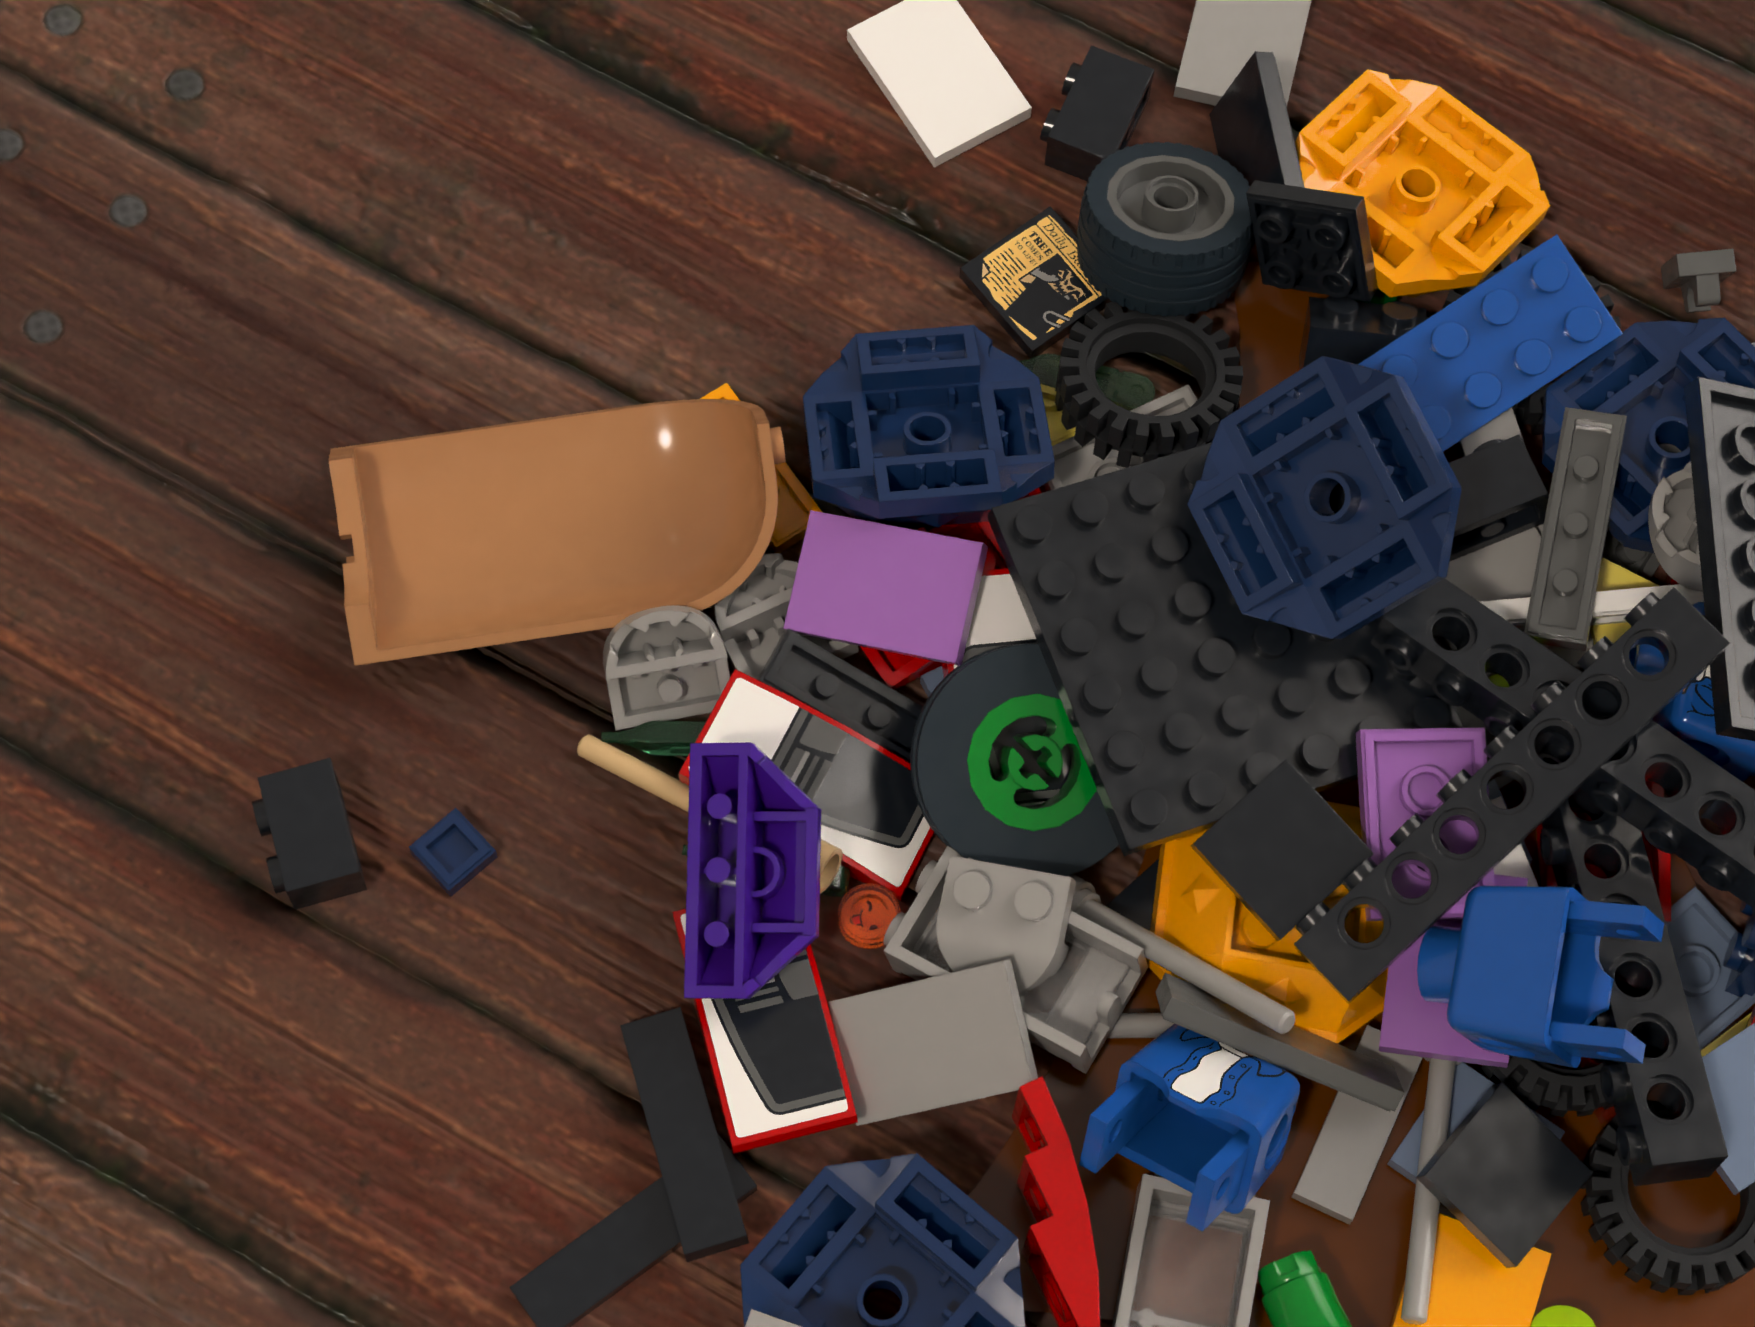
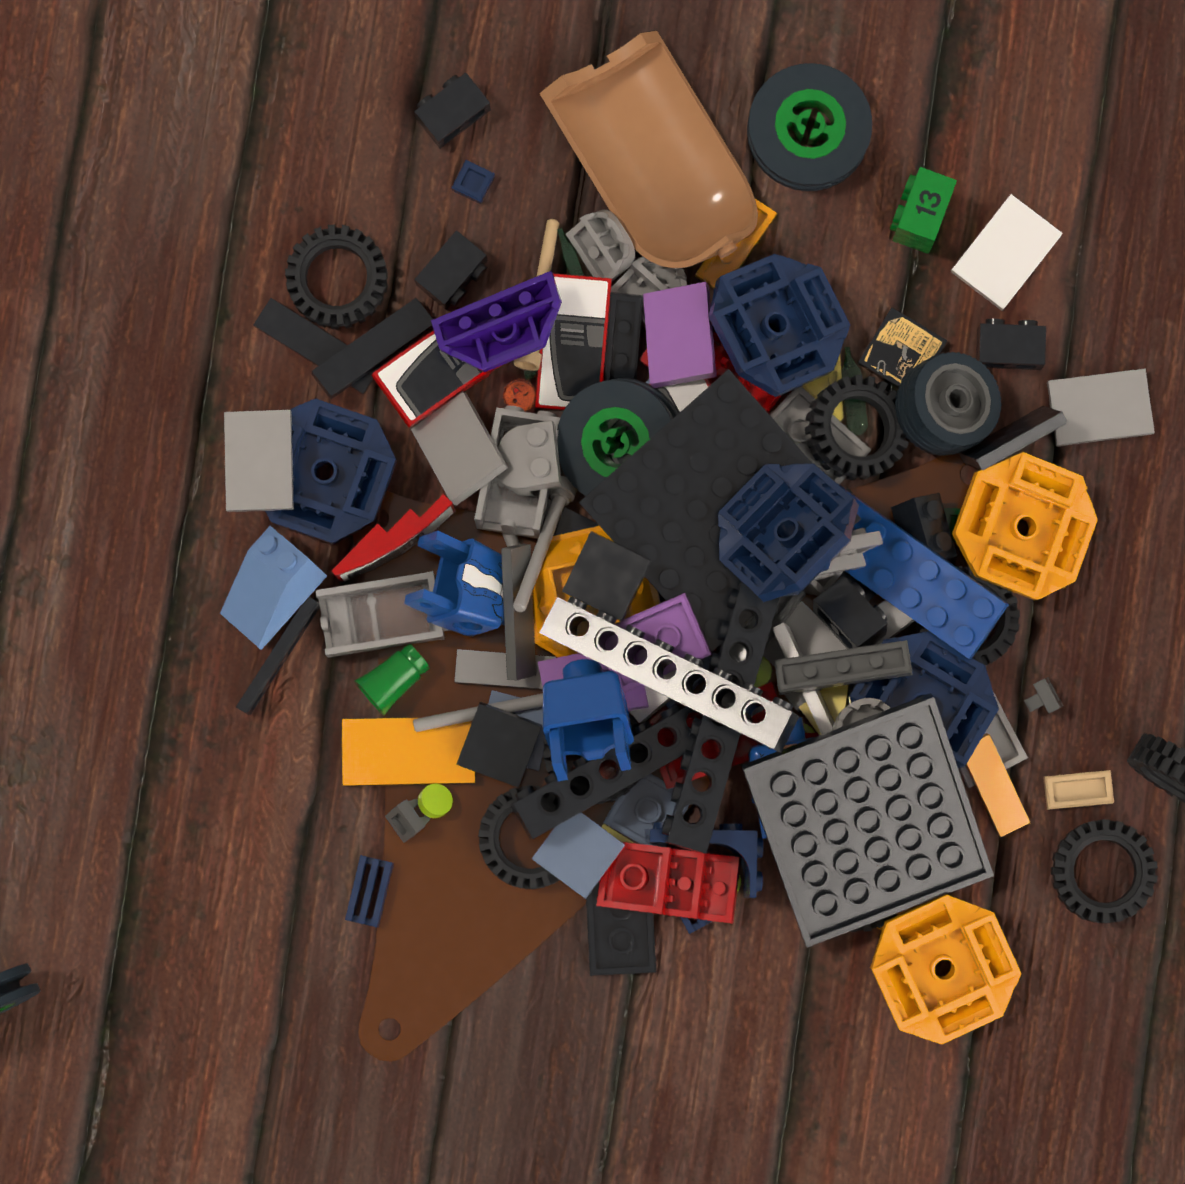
camera: 75 degrees right, 15 degrees up
(513, 1077) = (329, 239): none -> black tyre
(584, 328) = (844, 139): none -> black wheel
(600, 943) = (452, 271): none -> black brick
(825, 150) = (924, 210): none -> green brick
(1312, 240) = (959, 480): black tile -> none

